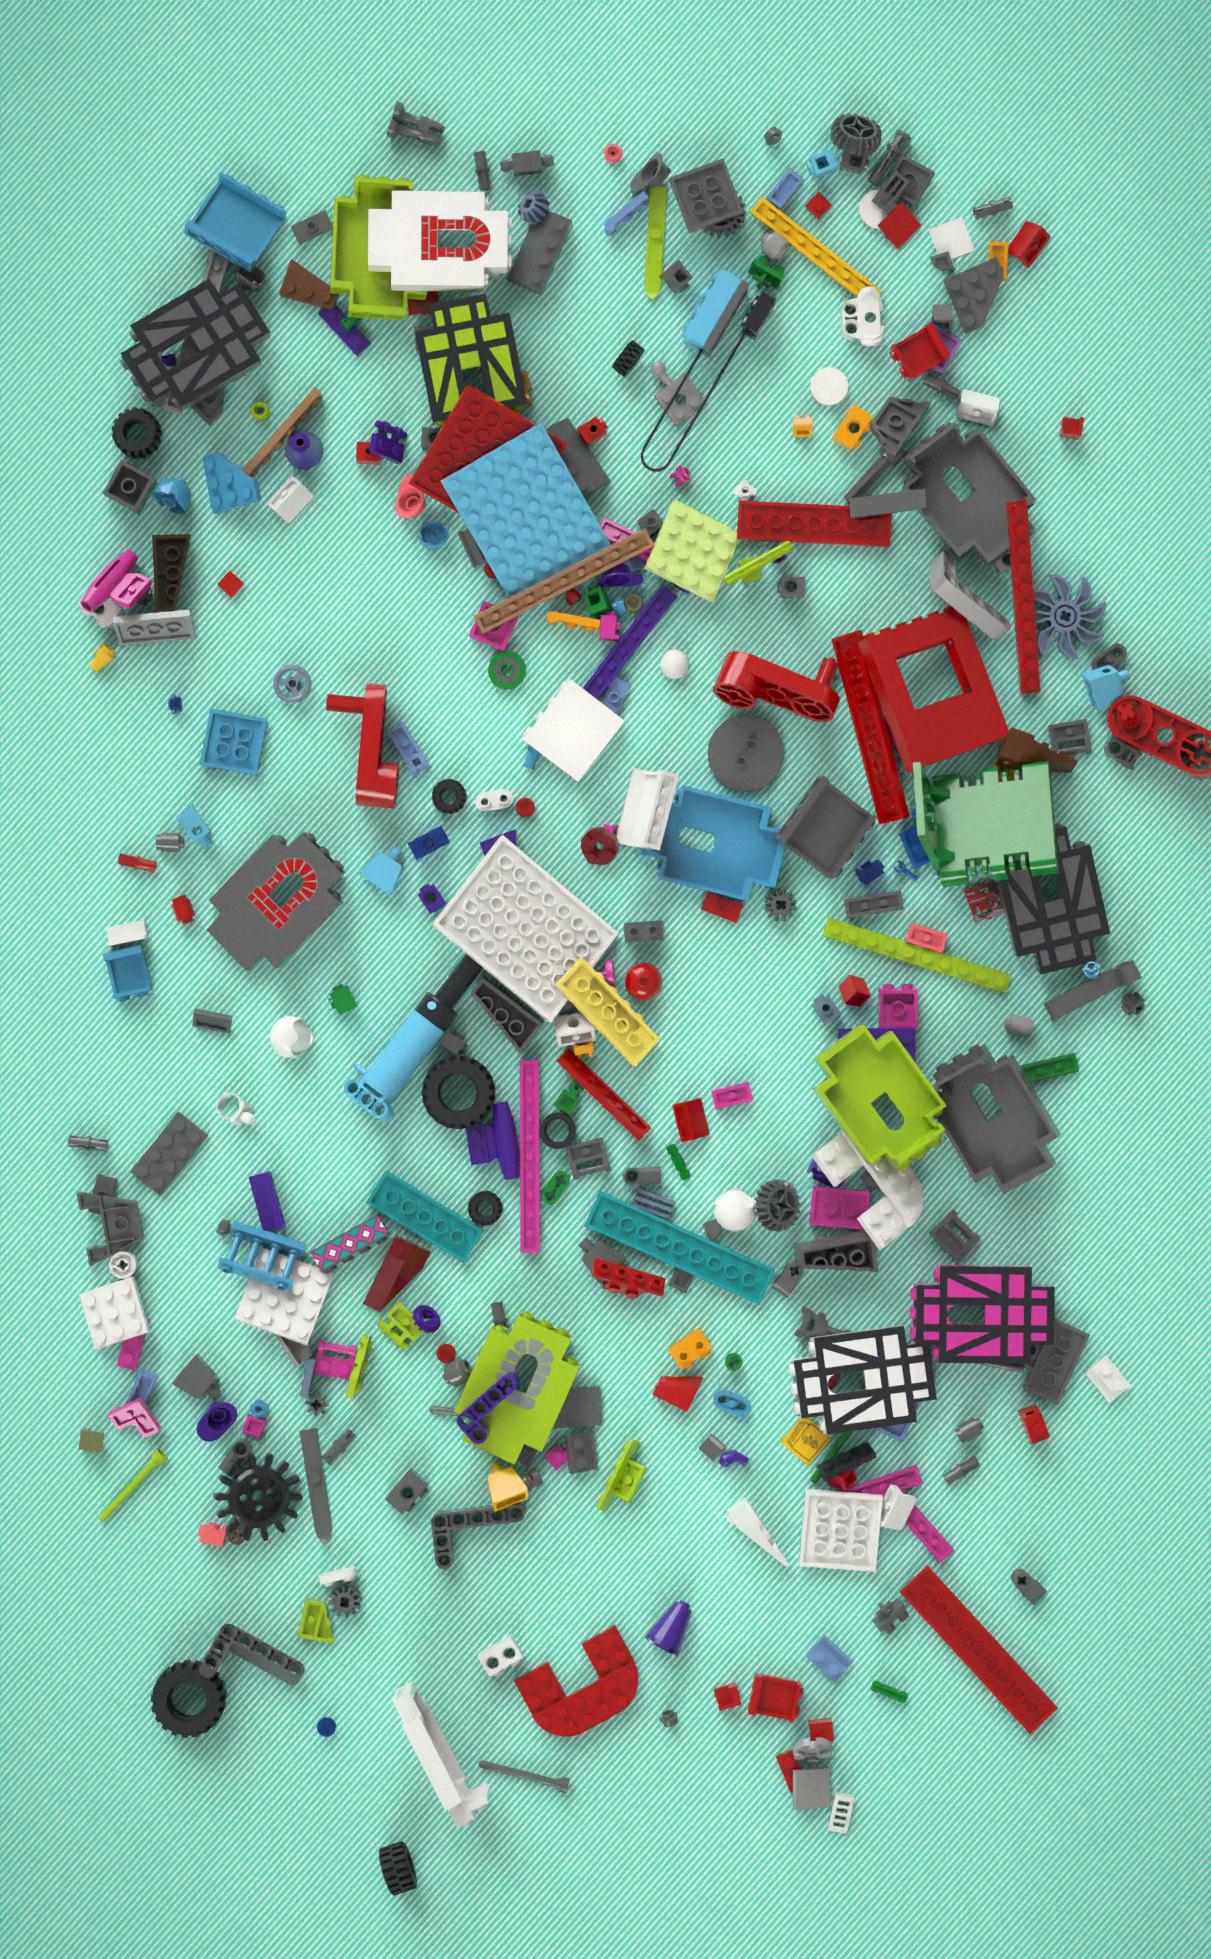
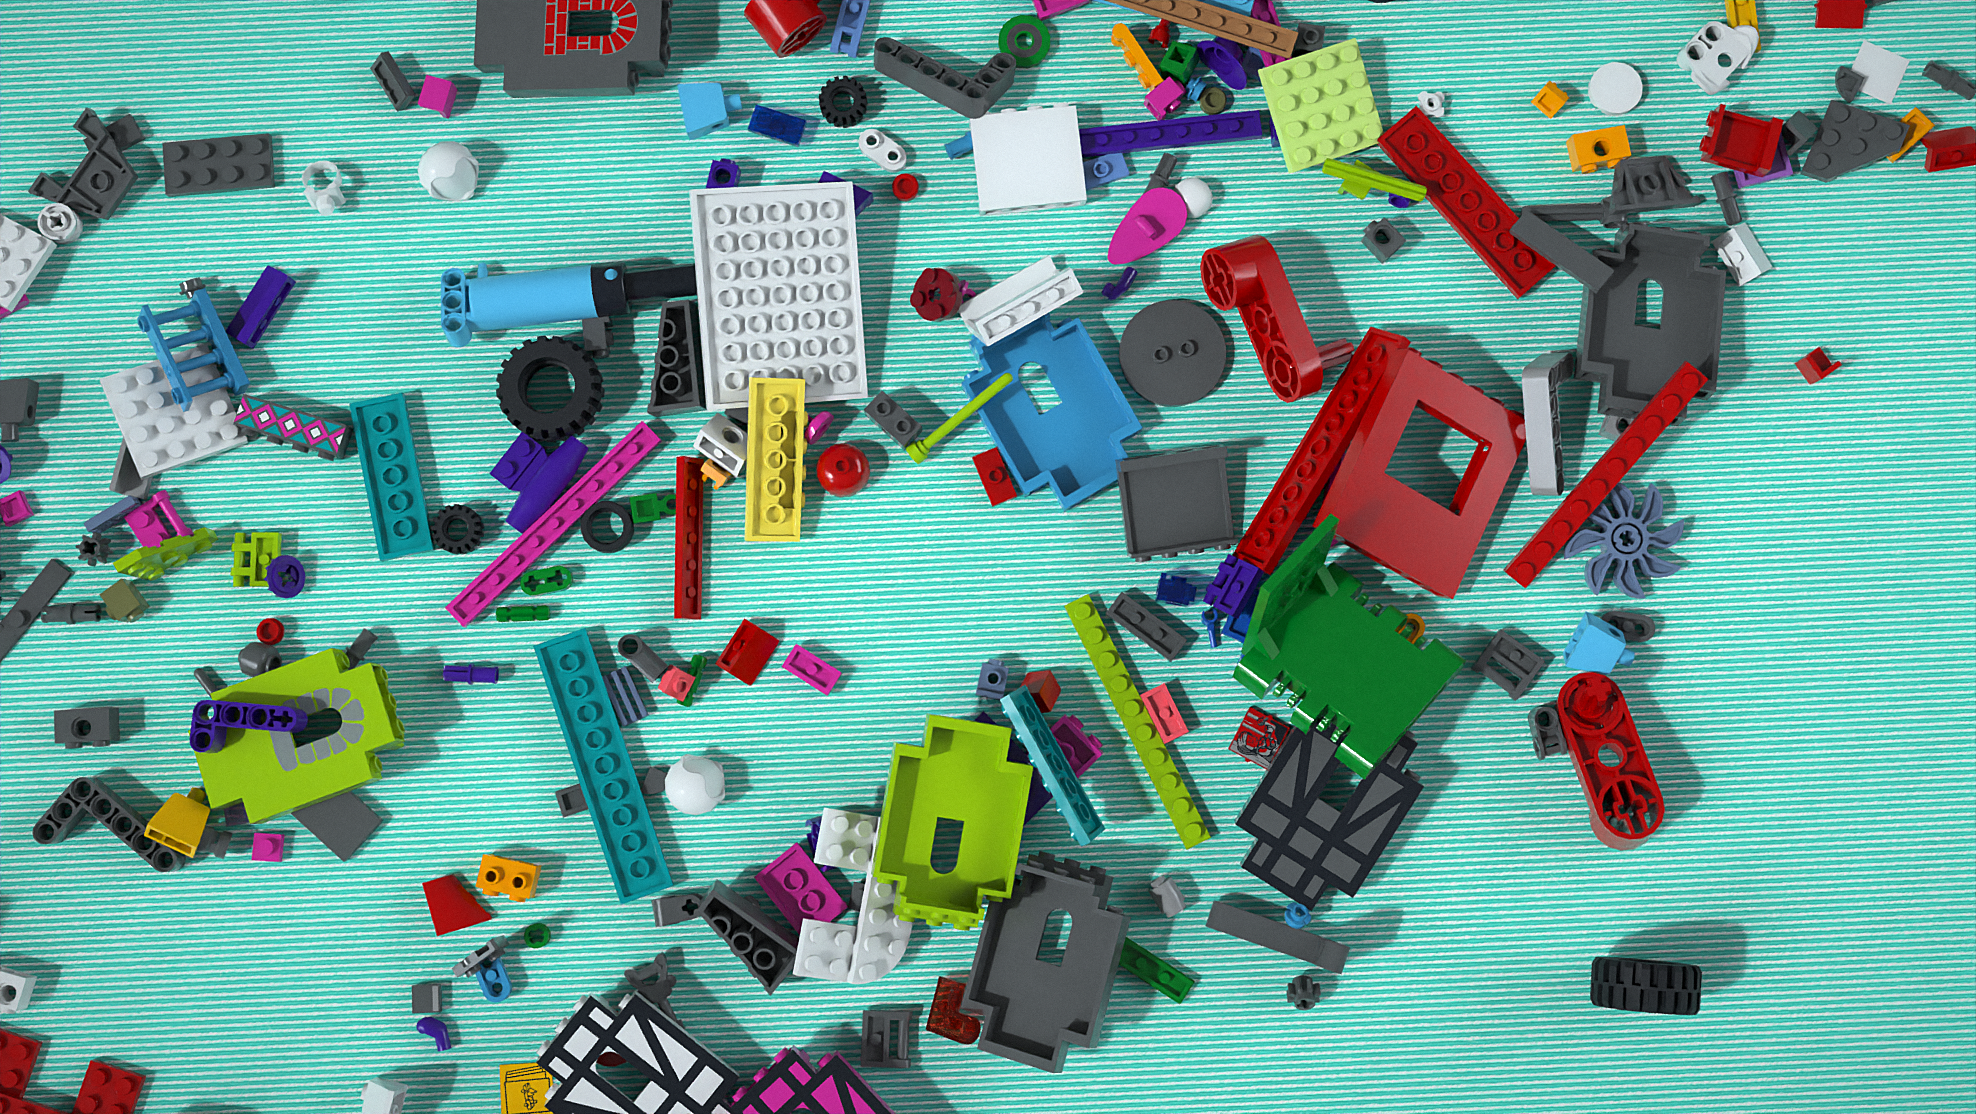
camera: 45 degrees right, 5 degrees down
(88, 1143) = (153, 76): dark grey pin -> none
(243, 1005) = (438, 95): none -> dark pink panel
(254, 1409) = (42, 500): dark azure plate -> none
(342, 999) = (536, 188): green brick -> none
(360, 1413) = (124, 601): none -> olive brick
(398, 1268) = (313, 499): dark red wedge -> none
(491, 733) = (942, 84): none -> dark grey beam
(561, 1215) = (522, 613): none -> green axle
(566, 1271) = (471, 674): none -> dark purple axle
(580, 1452) = (293, 866): dark grey plate -> none
(584, 1152) = (612, 576): dark grey plate -> none
(601, 1251) = (515, 695): dark grey torso -> none
(625, 1477) = (307, 938): lime bracket -> none
(627, 1280) = (516, 742): red bracket -> none
(648, 671) = (1162, 172): none -> dark grey axle
(668, 701) = (1148, 226): none -> dark pink shield
(671, 932) = (919, 450): none -> lime piece
(672, 1171) = (676, 682): none -> coral bracket
(683, 475) = (1386, 30): dark pink plate -> none
(686, 745) = (1124, 283): none -> dark purple arm
(721, 1391) = (491, 951): none -> dark grey wing
(776, 1194) = (724, 823): dark grey gear -> none
(779, 898) = (1046, 538): dark grey gear -> none
(900, 840) = (1237, 589): none -> dark purple plate
(900, 1020) = (1052, 764): none -> teal plate
(972, 1194) = (945, 1015): none -> clear red brick
(1021, 749) = (1452, 622): reddish brown wedge -> none

